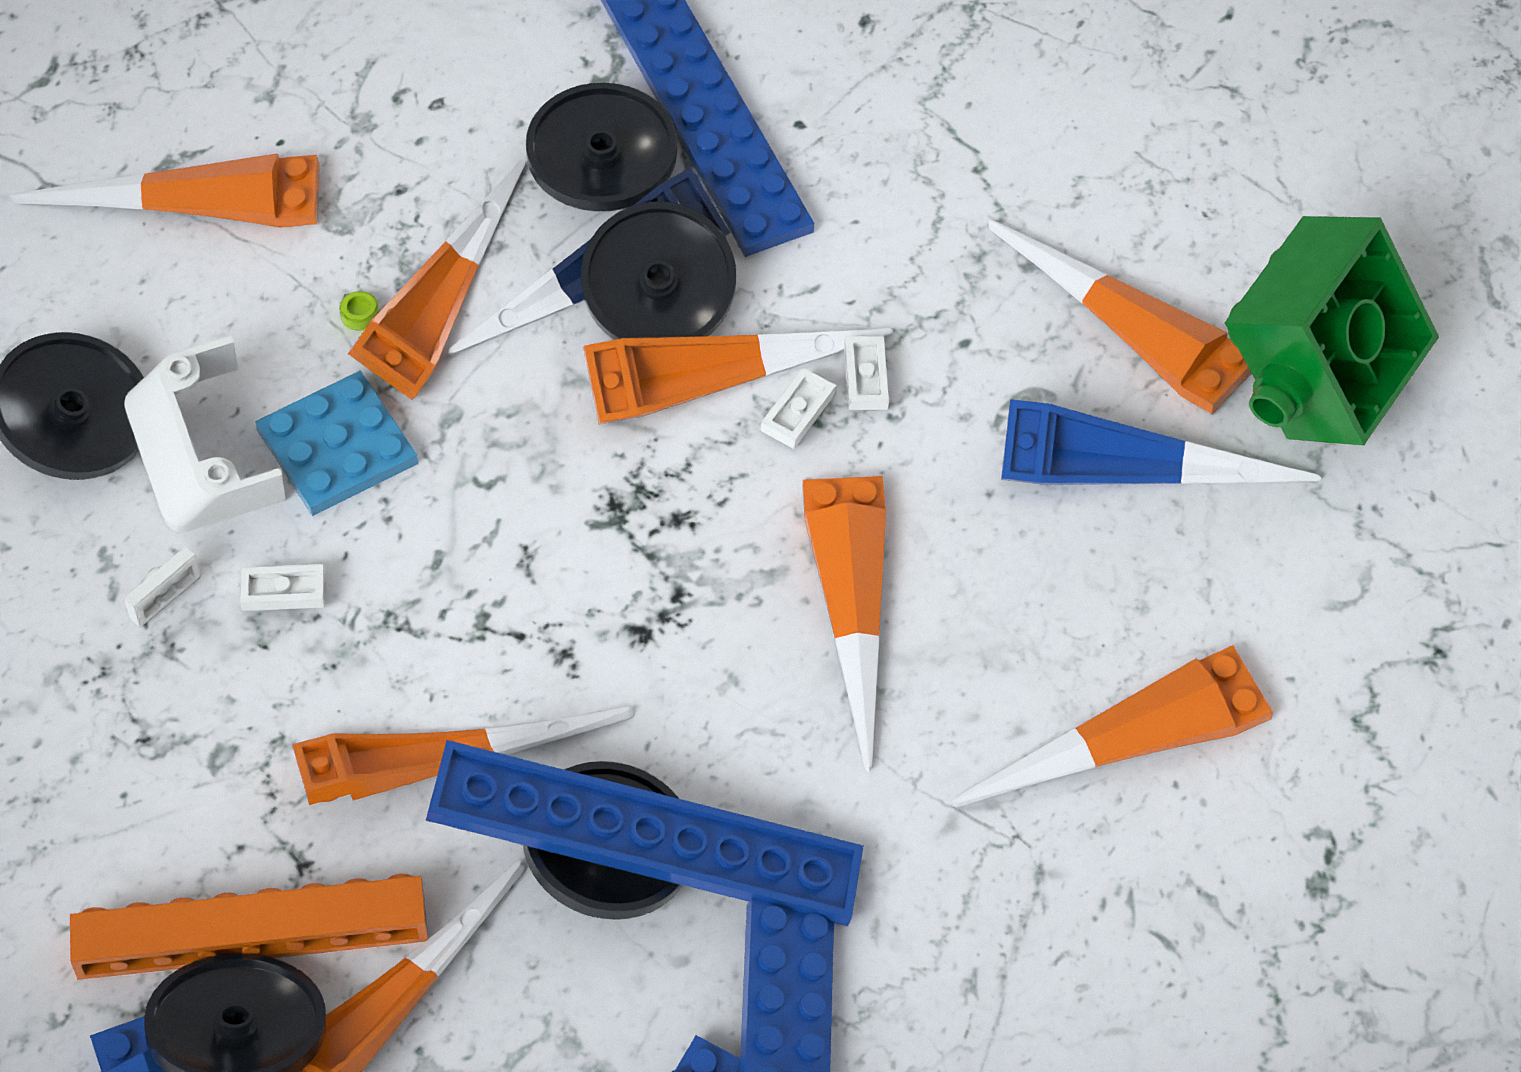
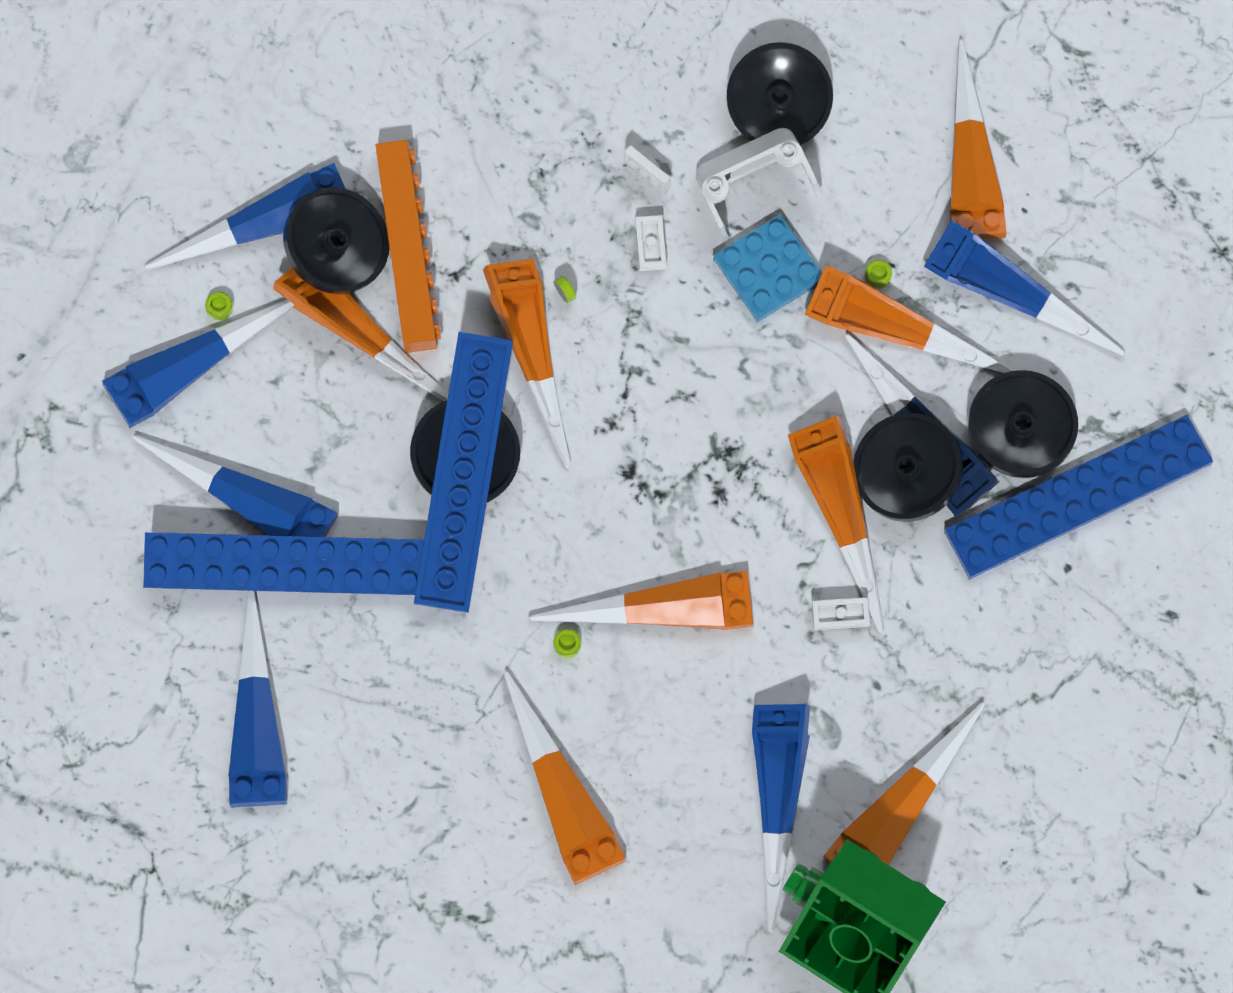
camera: 90 degrees right, 15 degrees up
(347, 703) = (564, 289): none -> lime tile
(364, 186) = (979, 267): none -> blue plate
(798, 408) = (808, 568): white plate -> none
(908, 718) = (567, 643): none -> lime tile

